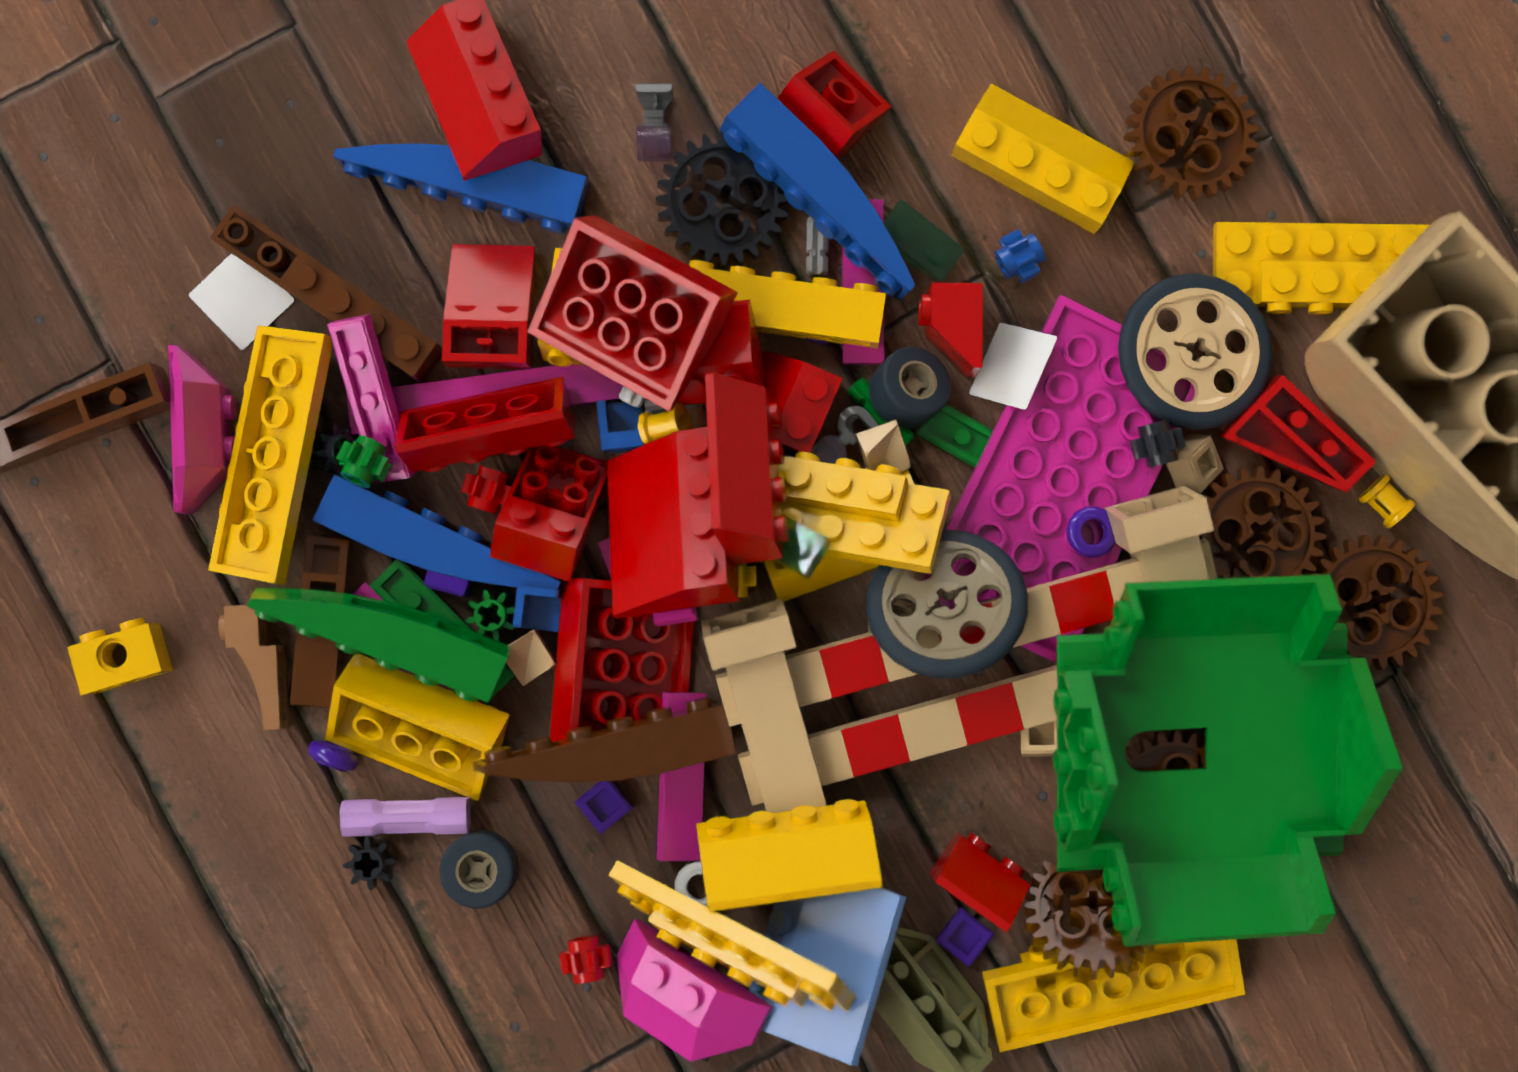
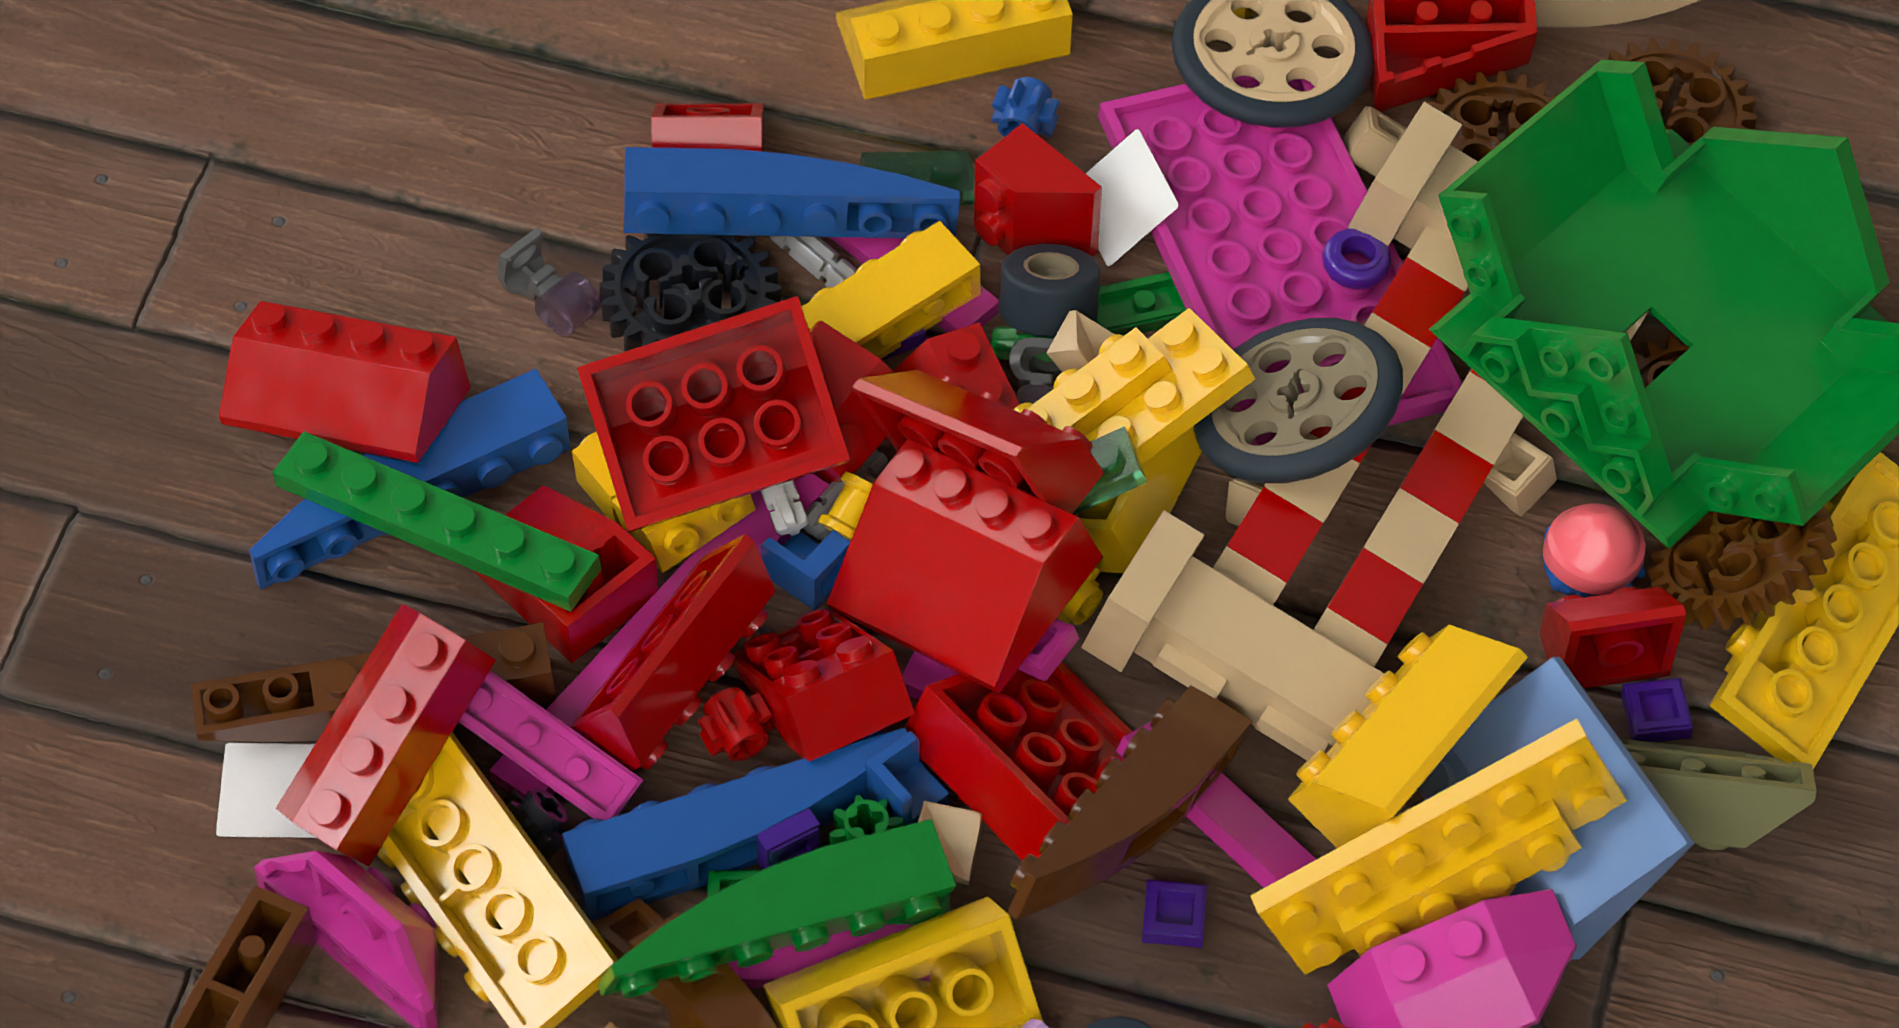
camera: 50 degrees left, 30 degrees down
(284, 338) = (385, 735): none -> red slope
(363, 461) = (583, 787): green gear -> none
(436, 229) = (437, 521): none -> green plate
(1024, 823) = (1593, 551): none -> coral hair
(1158, 443) = (1329, 135): black gear -> none
(1386, 501) = (1596, 40): yellow bush -> none

